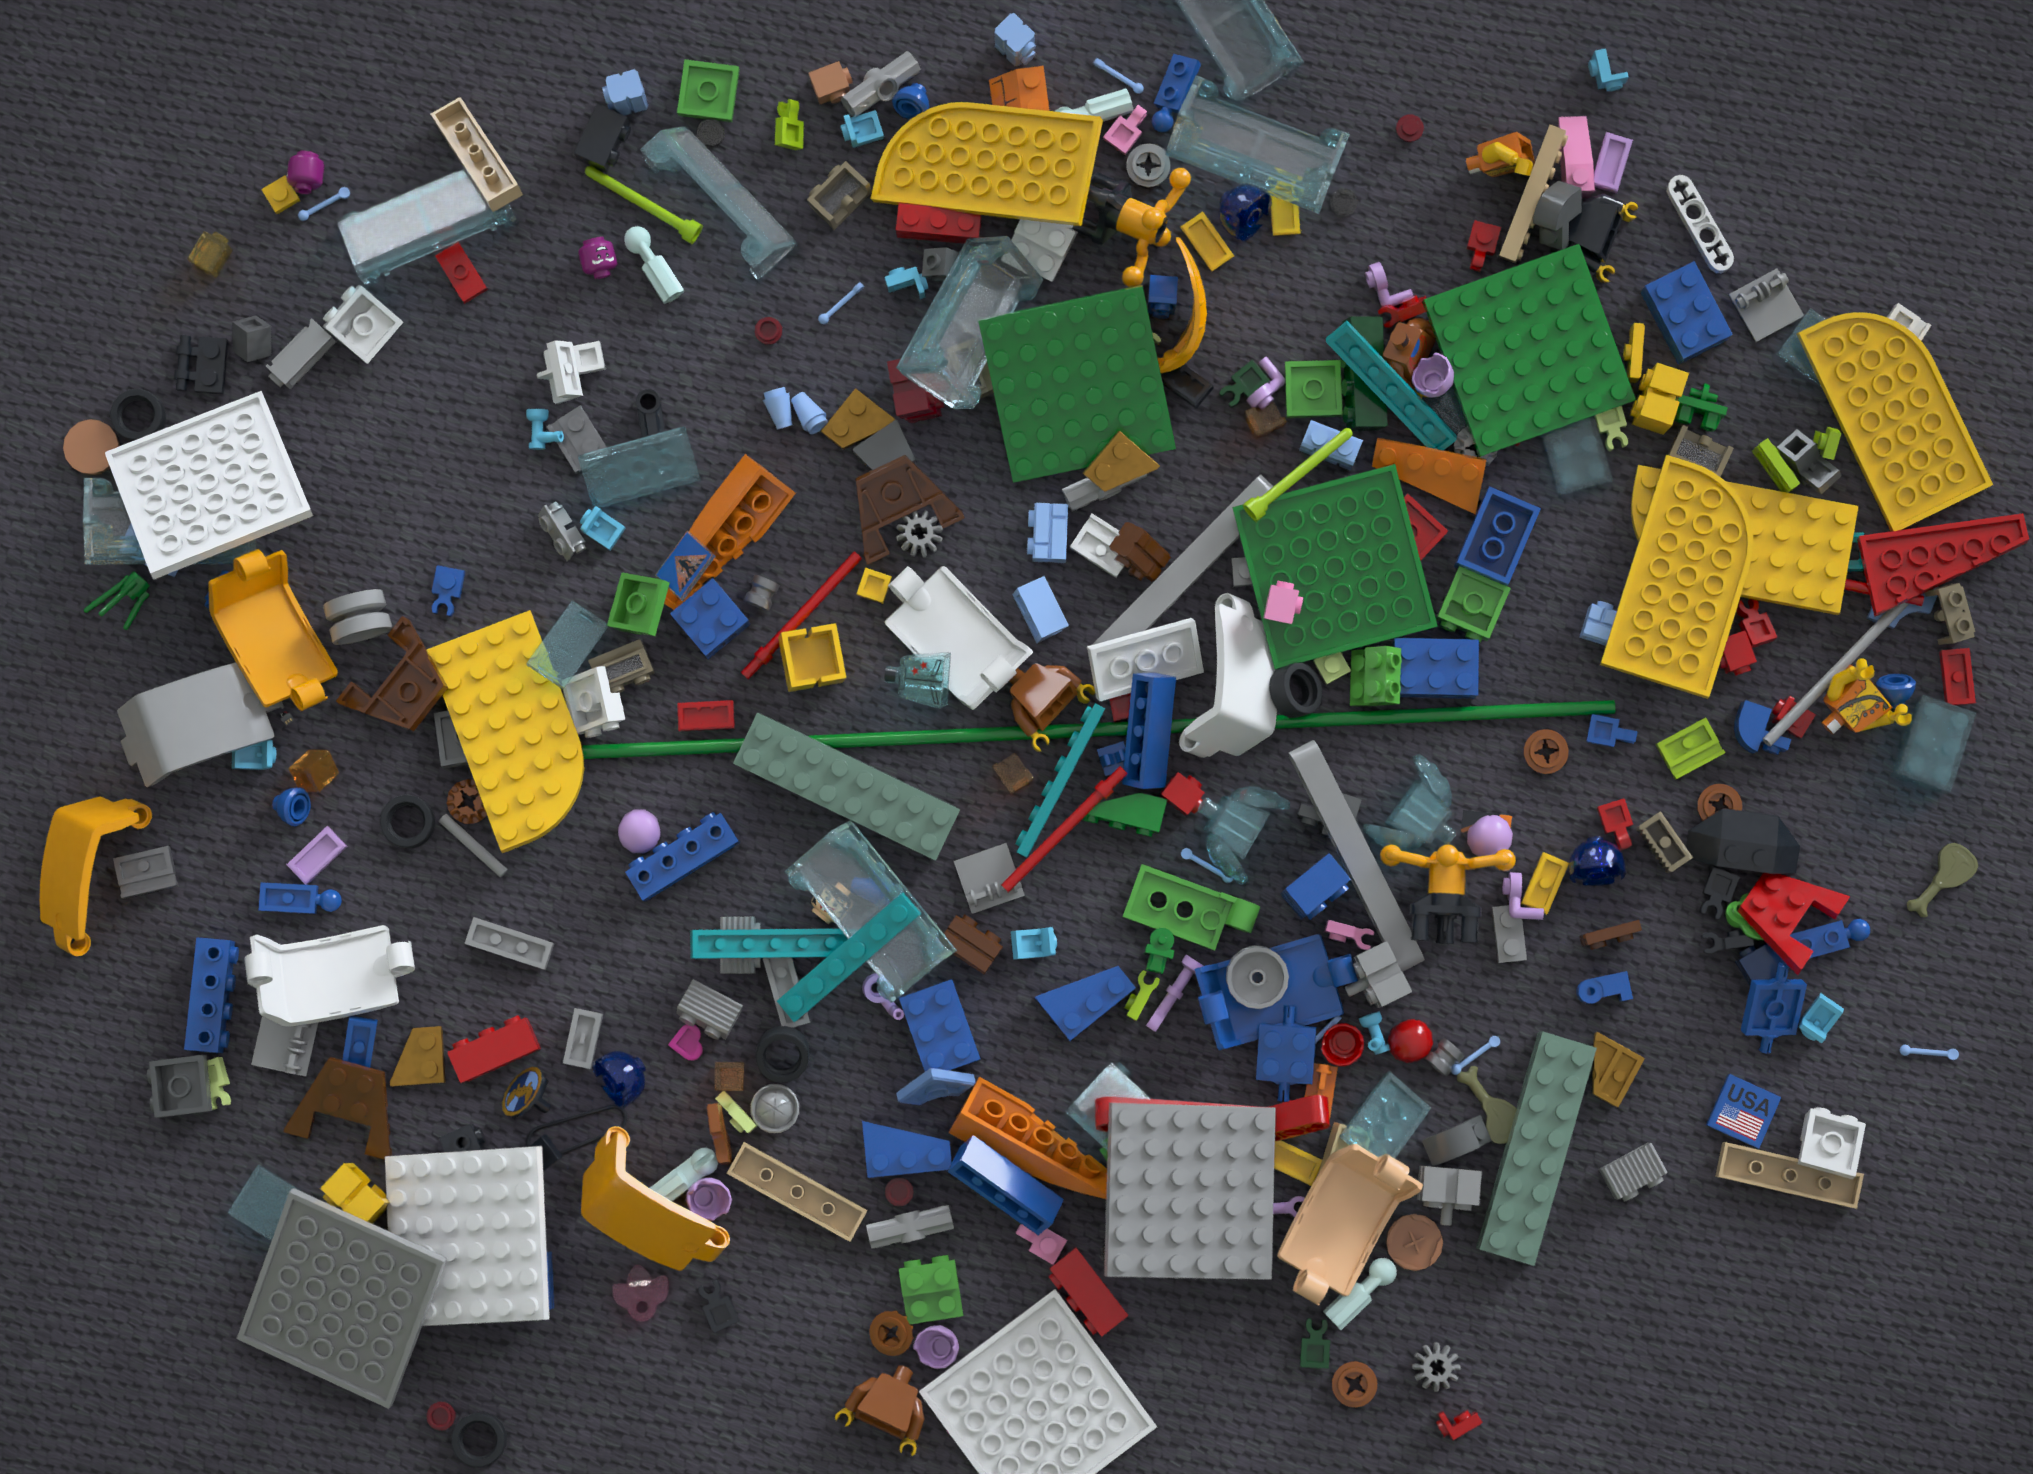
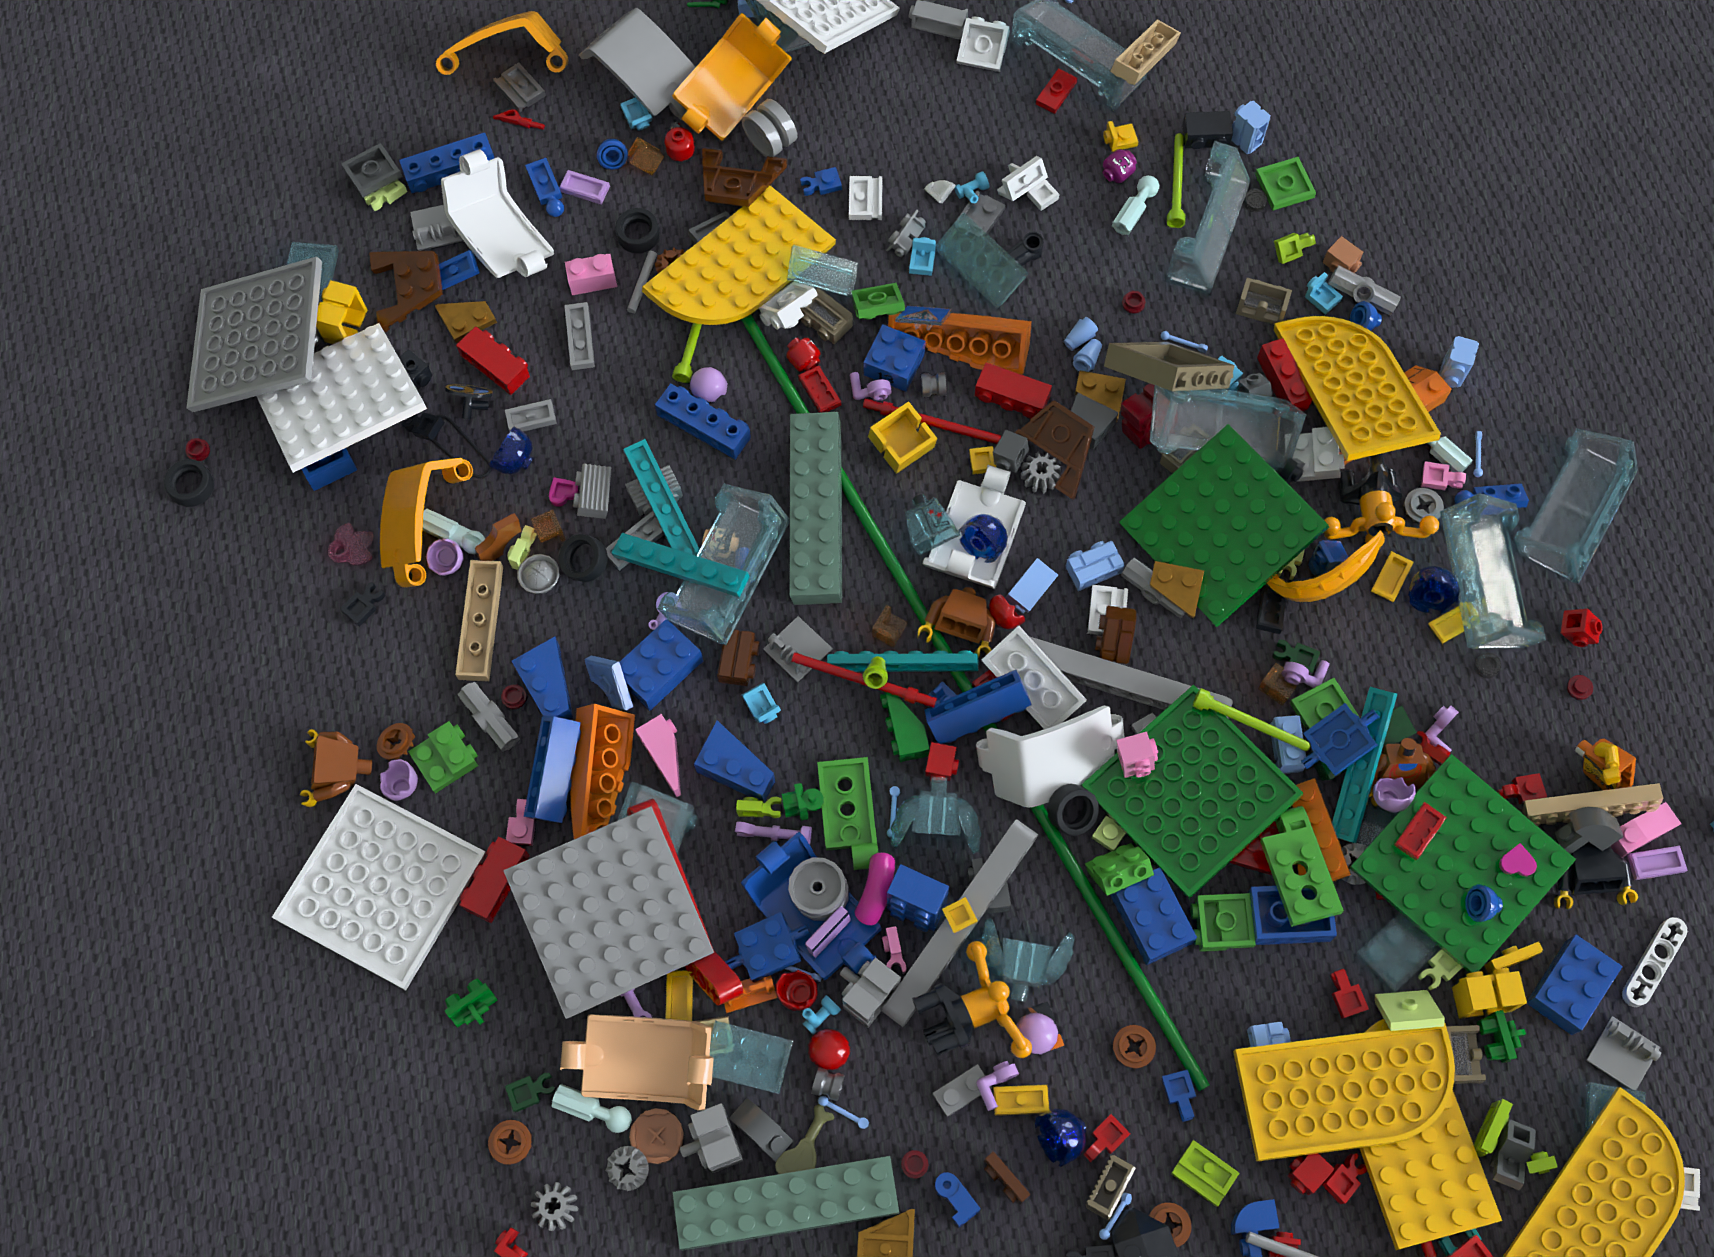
camera: 65 degrees right, 15 degrees down
(195, 884) = (517, 120): none -> red hand
(329, 729) = (679, 144): none -> red head
(439, 898) = (590, 274): none -> bright pink brick
(493, 552) = (865, 198): none -> white plate
(524, 465) = (940, 189): none -> white tile
(557, 234) = (1120, 136): none -> yellow bracket
(609, 850) = (683, 371): none -> lime piece
(656, 713) = (803, 354): none -> red head
(739, 655) = (876, 389): none -> lavender plate
(812, 514) = (1012, 390): none -> red brick
(858, 390) = (1165, 363): none -> dark tan window
(887, 555) = (1010, 451): none -> dark grey brick
(966, 628) = (984, 537): none -> clear blue cylinder
(1030, 1064) = (662, 747): none -> bright pink slope
(1052, 280) = (1293, 470): none -> black plate
(1058, 651) = (1004, 613): none -> red hair
(1069, 815) = (876, 673): none -> lime cone
(1208, 1367) = (471, 1006): none -> green hips
(1285, 920) = (875, 893): none -> dark pink cylinder
(1302, 988) = (828, 931): none -> lavender tile
(1354, 91) = (1581, 627): none -> red brick
(1356, 854) = (960, 915): none -> yellow plate
(1360, 398) = (1340, 739): none -> blue plate
(1435, 1270) = (638, 1165): none -> light grey gear
(1442, 494) = (1299, 846): none -> bright green hinge
(1484, 374) = (1420, 831): none -> red plate
(1555, 1011) = (914, 1164): none -> dark red plate
(1557, 300) = (1518, 861): none -> dark pink tile
(1580, 357) = (1482, 903): none -> blue brick
(1598, 527) = (1347, 998): none -> red plate
(1637, 479) = (1409, 1010): none -> yellowish green plate
(1701, 868) = (1125, 1199): none -> light blue hinge

